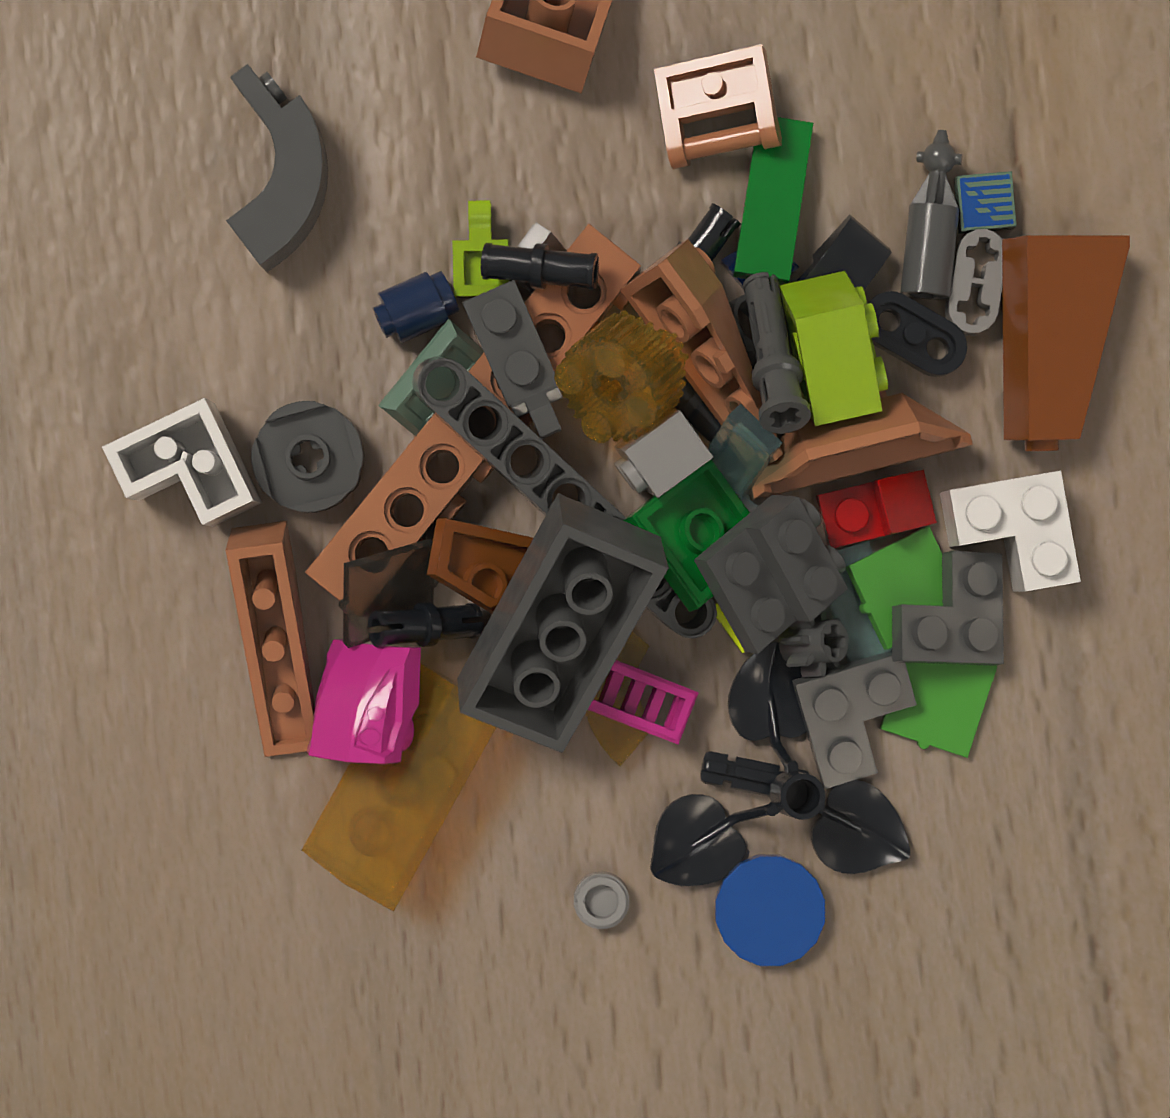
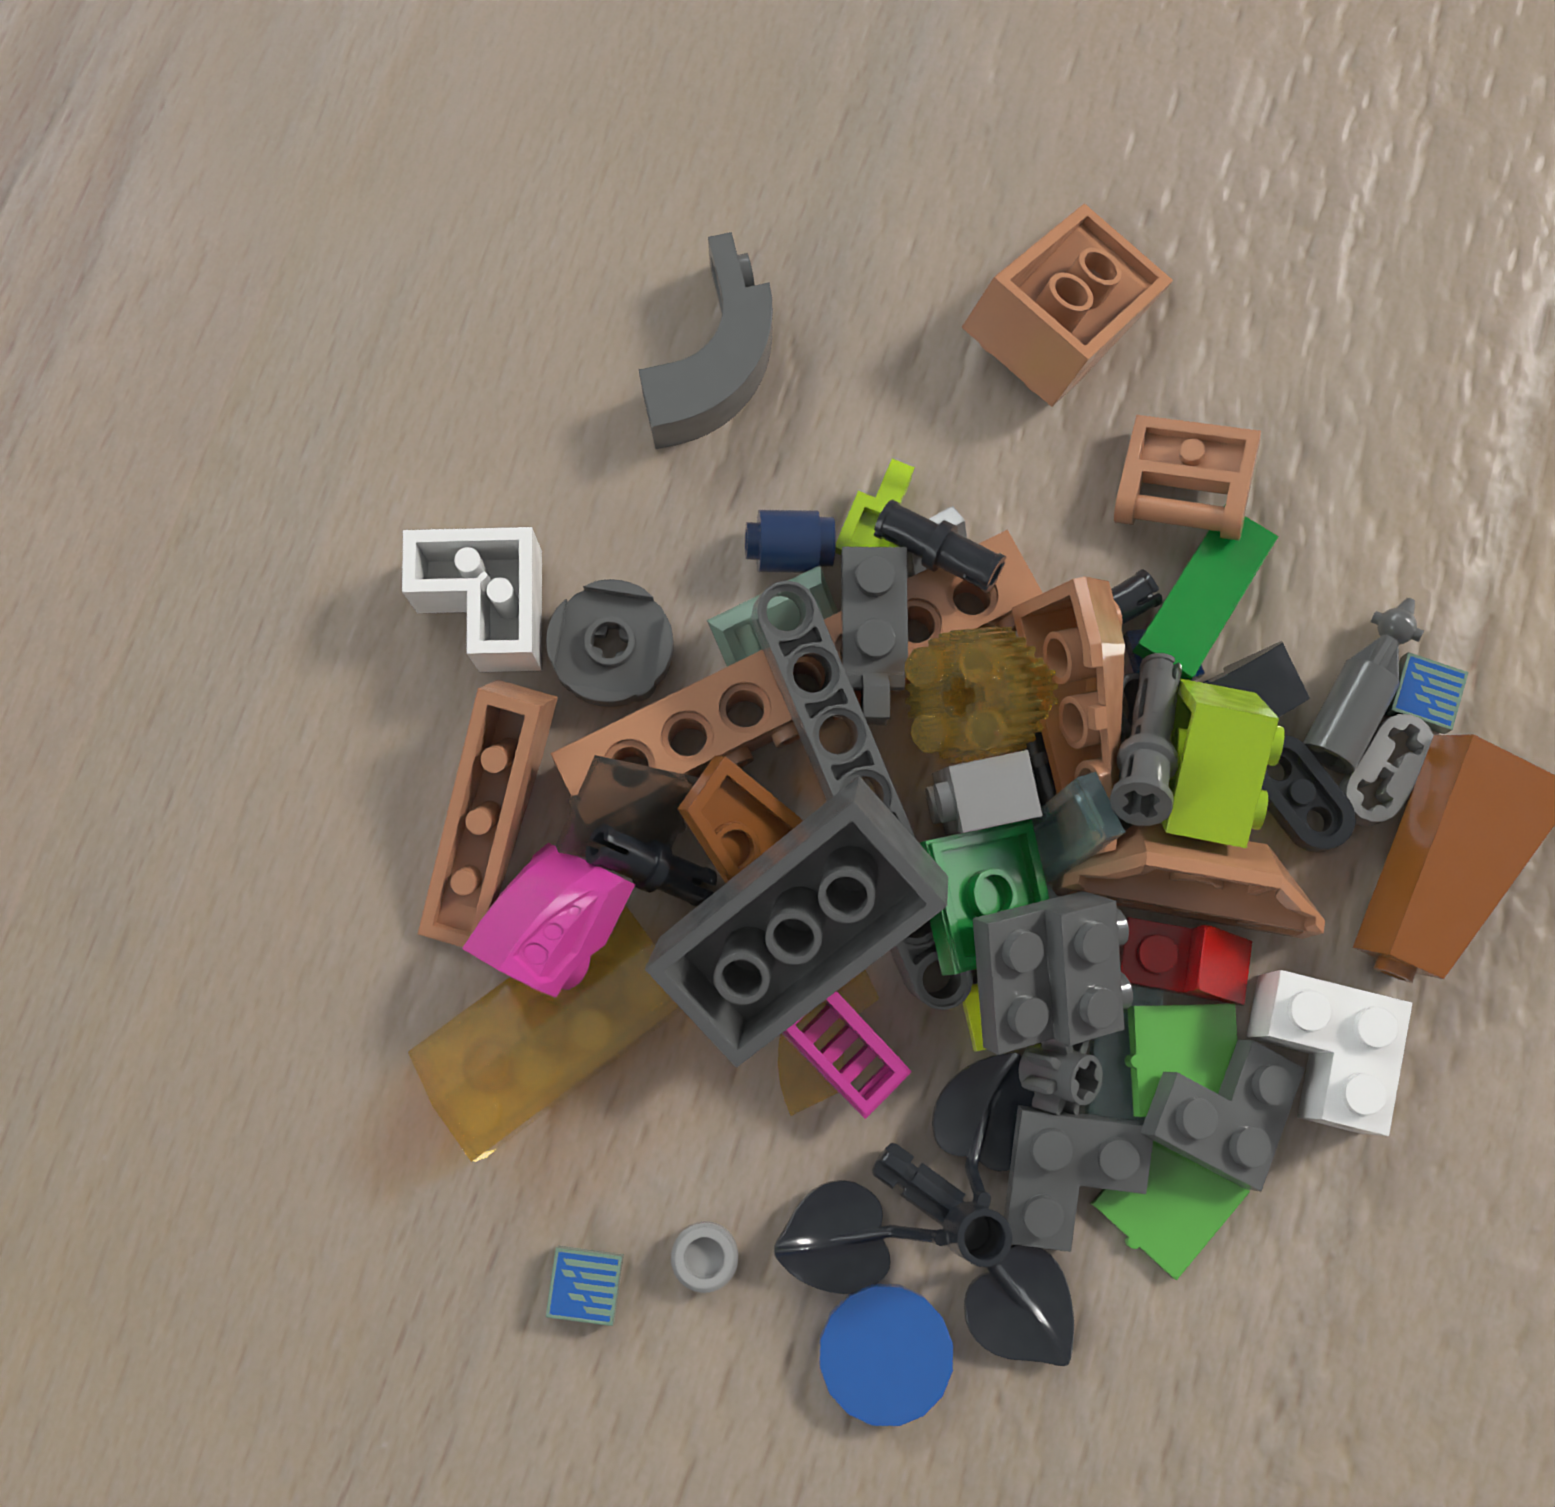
camera: 25 degrees right, 10 degrees down
(520, 961) = (584, 1285): none -> tile

